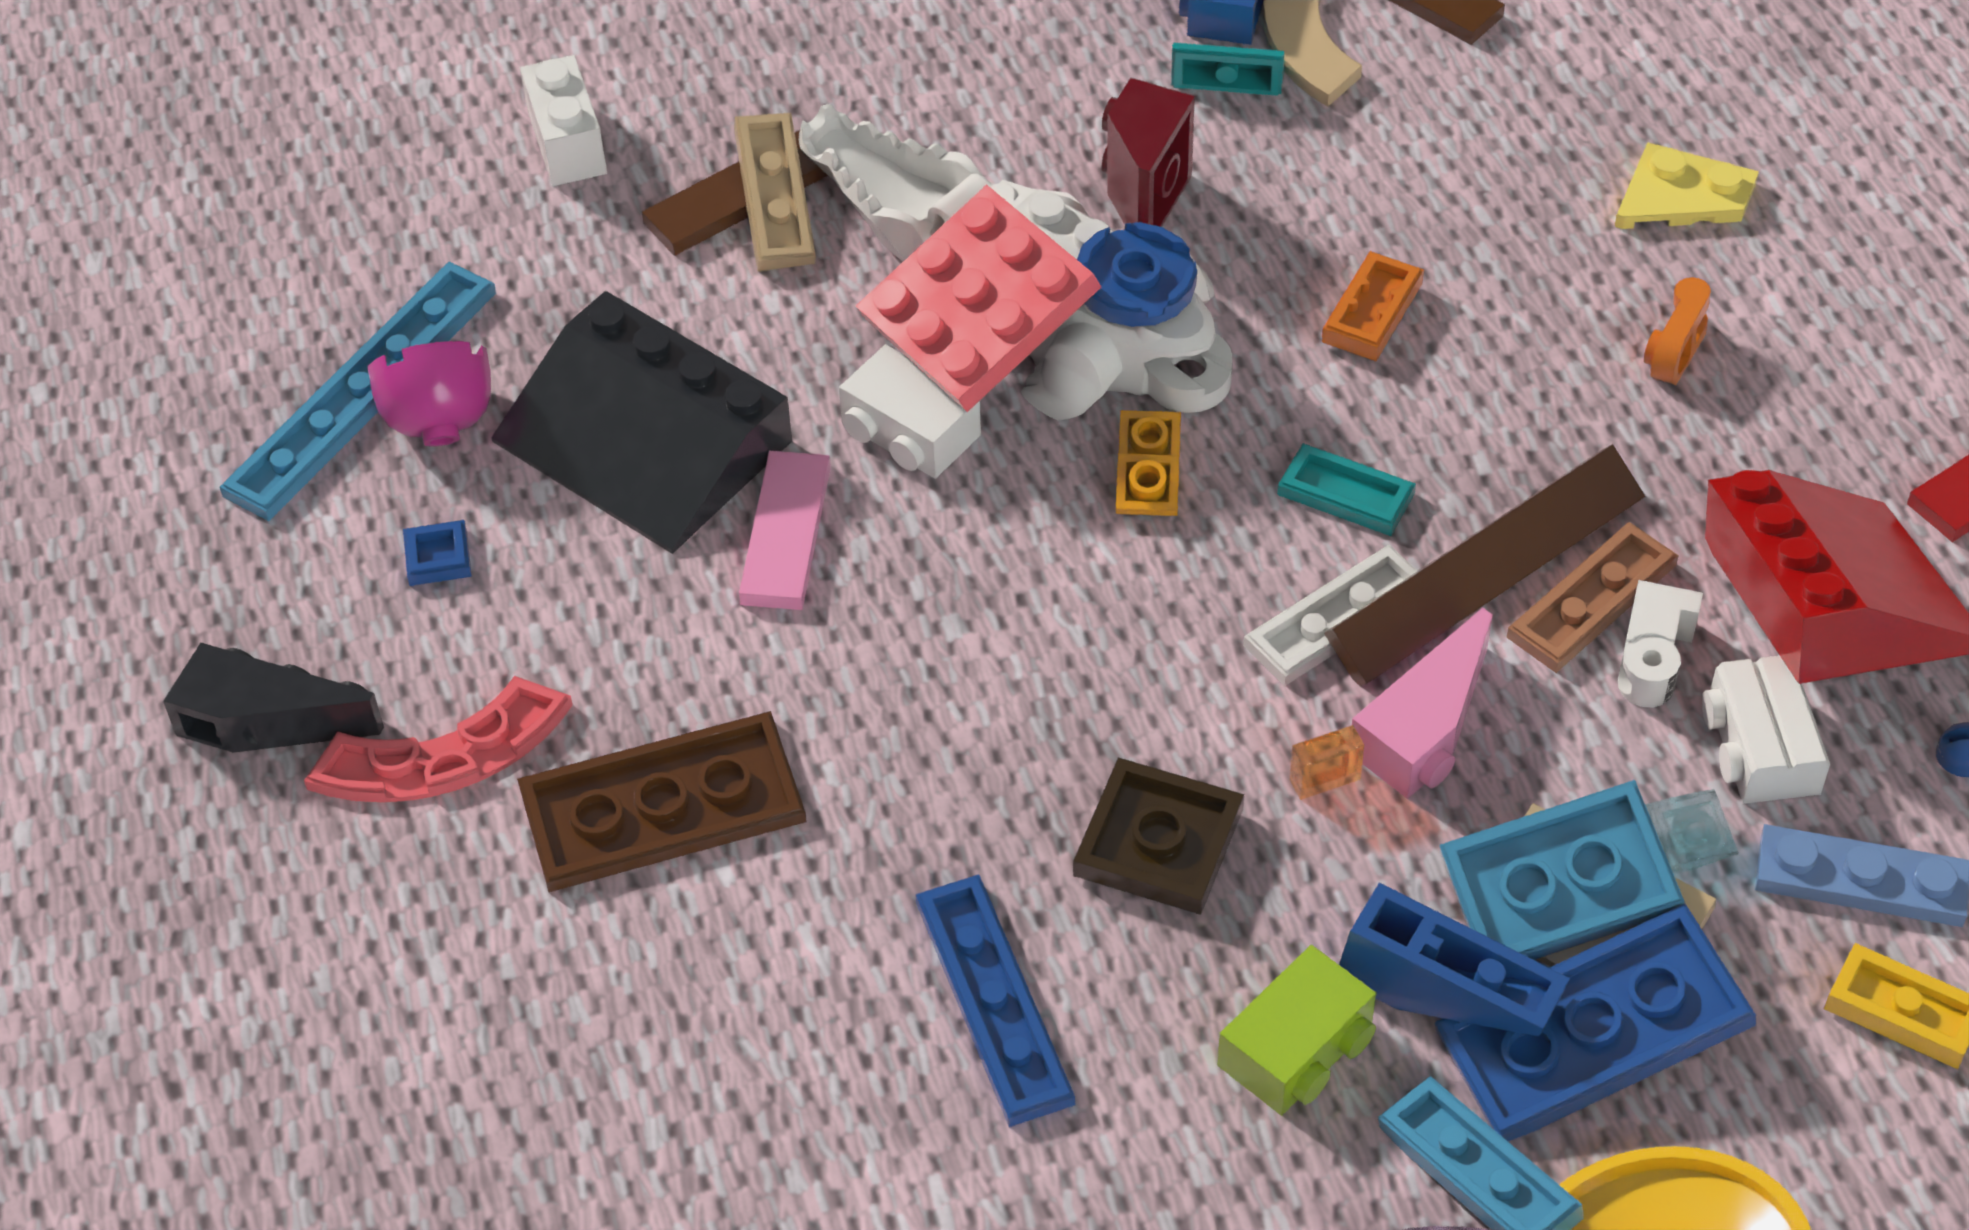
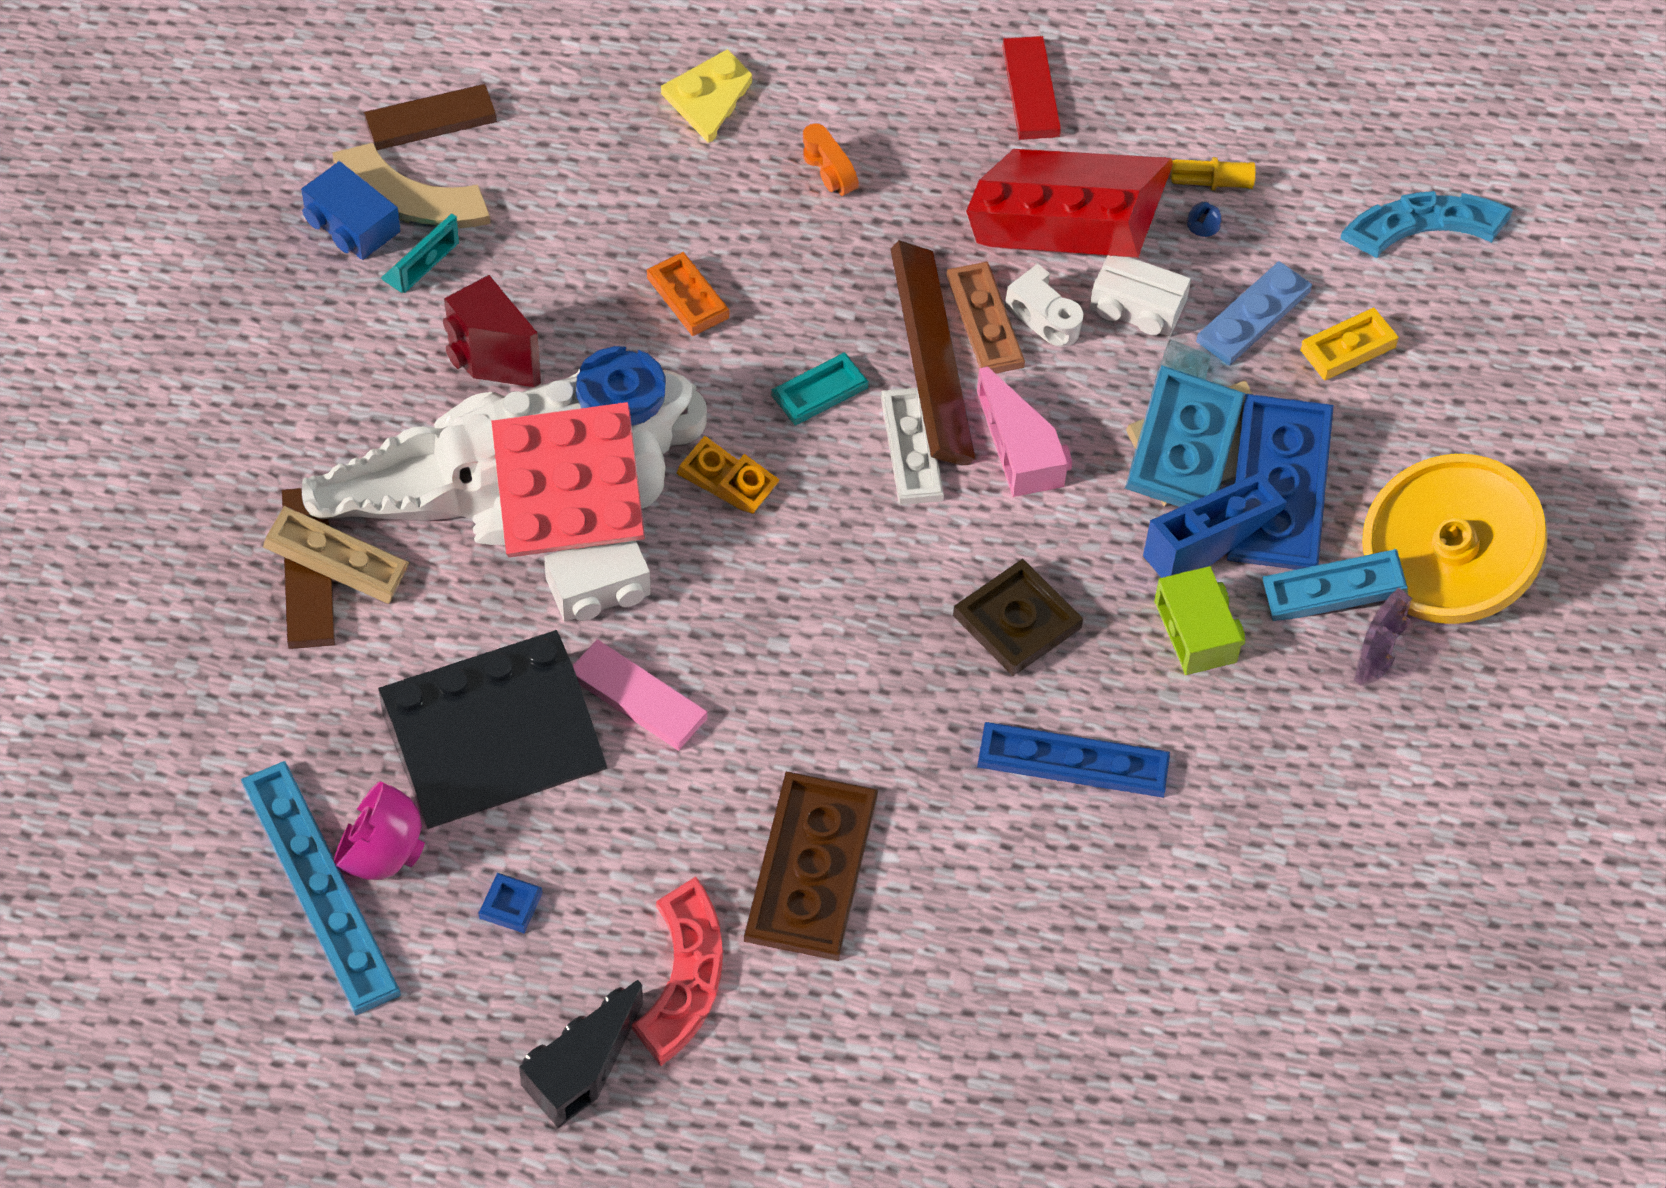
camera: 65 degrees left, 5 degrees up
(563, 120) = (165, 644): white brick -> none
(1326, 762) = (1025, 507): clear orange tile -> none

